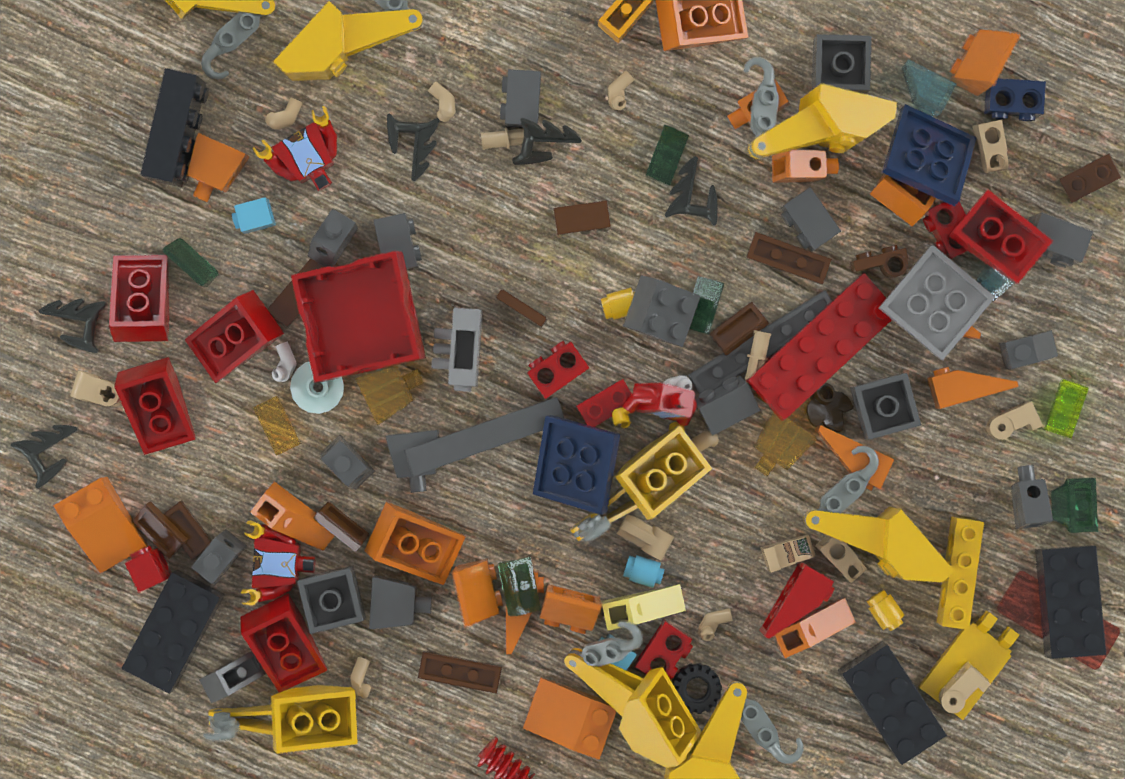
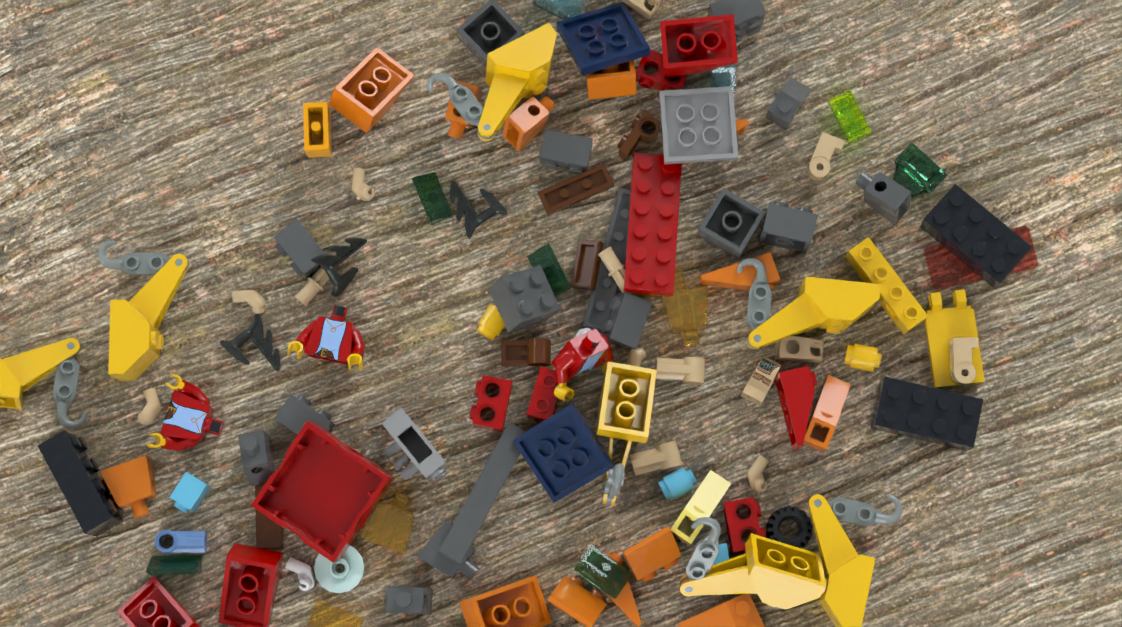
camera: 40 degrees left, 10 degrees down
(214, 251) = (183, 541): none -> medium blue piece
(477, 198) = (331, 340): none -> torso
(521, 308) = (429, 385): reddish brown tile -> none
(582, 217) = (414, 289): reddish brown tile -> none
(623, 354) = (526, 352): none -> reddish brown plate
(736, 488) = (688, 370): none -> tan piece
(828, 410) = (695, 260): dark brown plate -> none
(928, 453) = (788, 227): none -> dark grey brick
(960, 386) = (767, 165): orange slope -> none

